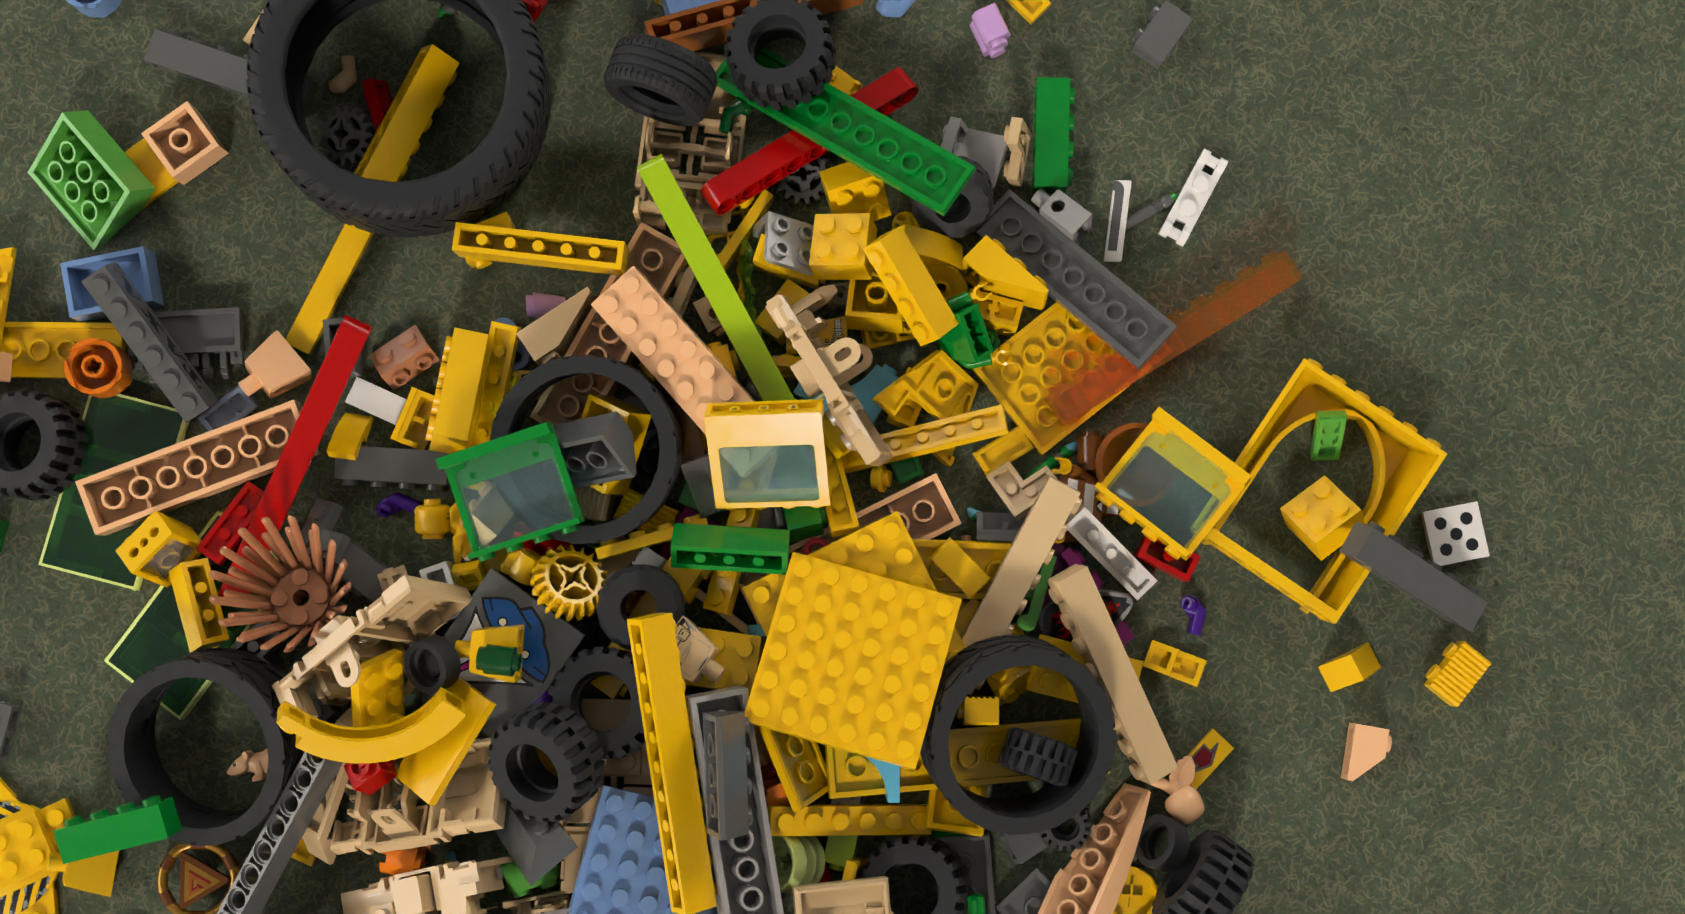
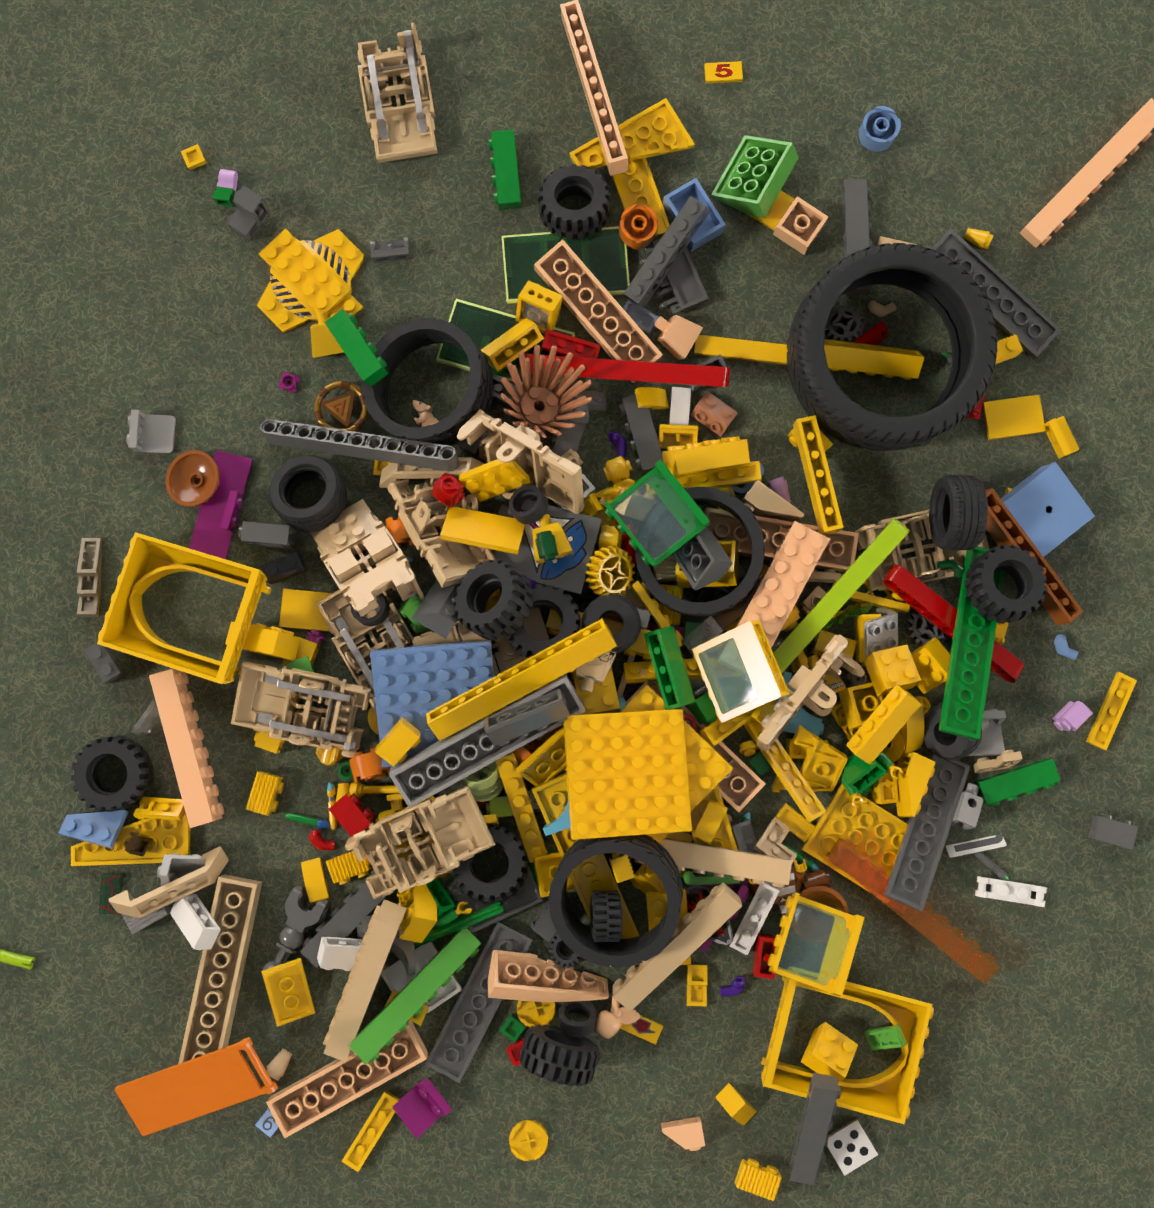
camera: 70 degrees right, 0 degrees up
(374, 743) = (467, 488): yellow arch -> none

